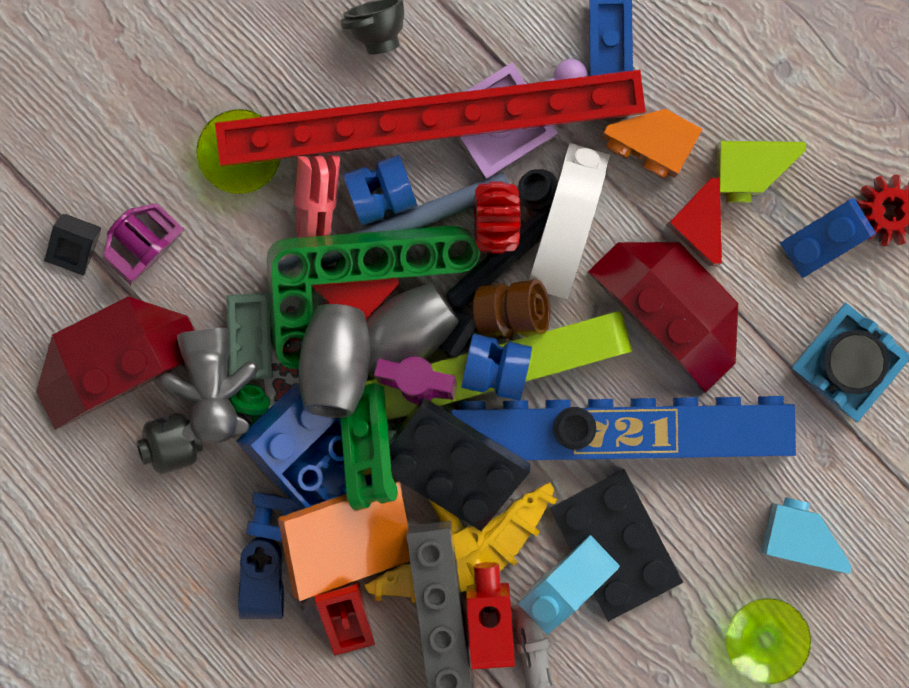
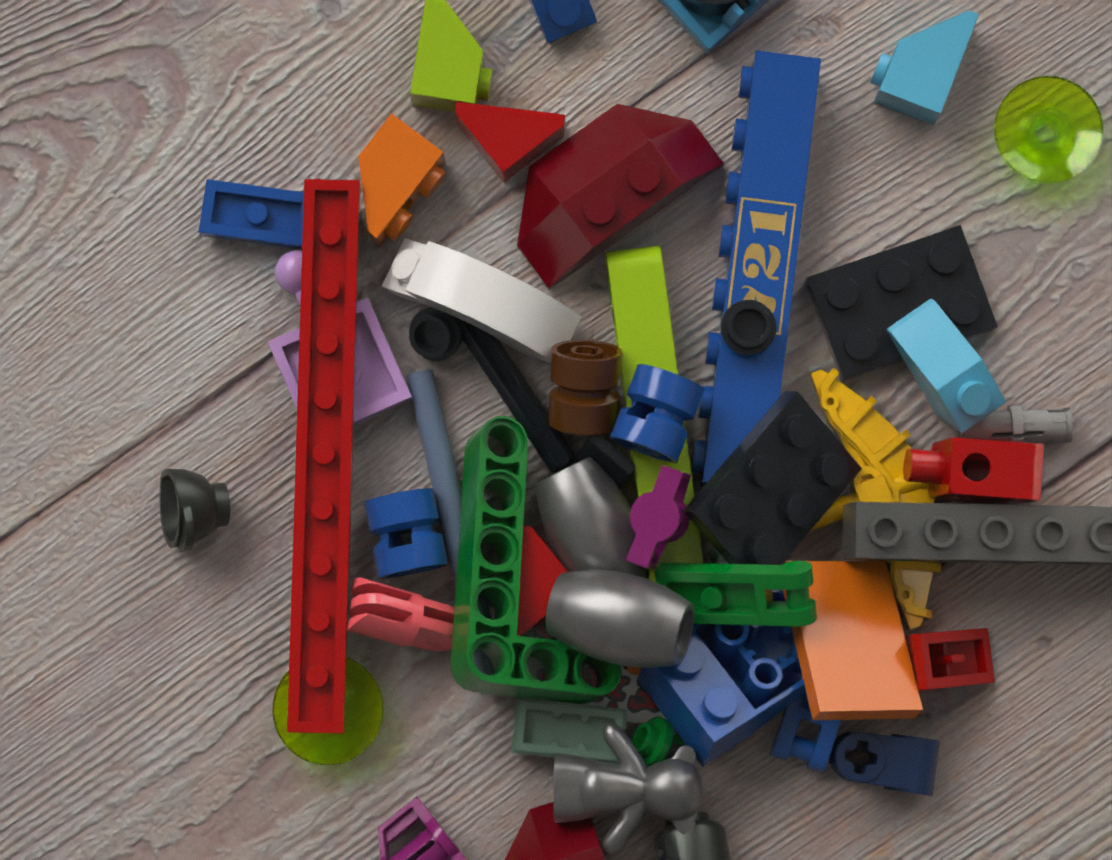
camera: 80 degrees left, 5 degrees down
(497, 217) = (464, 387): red gear -> none

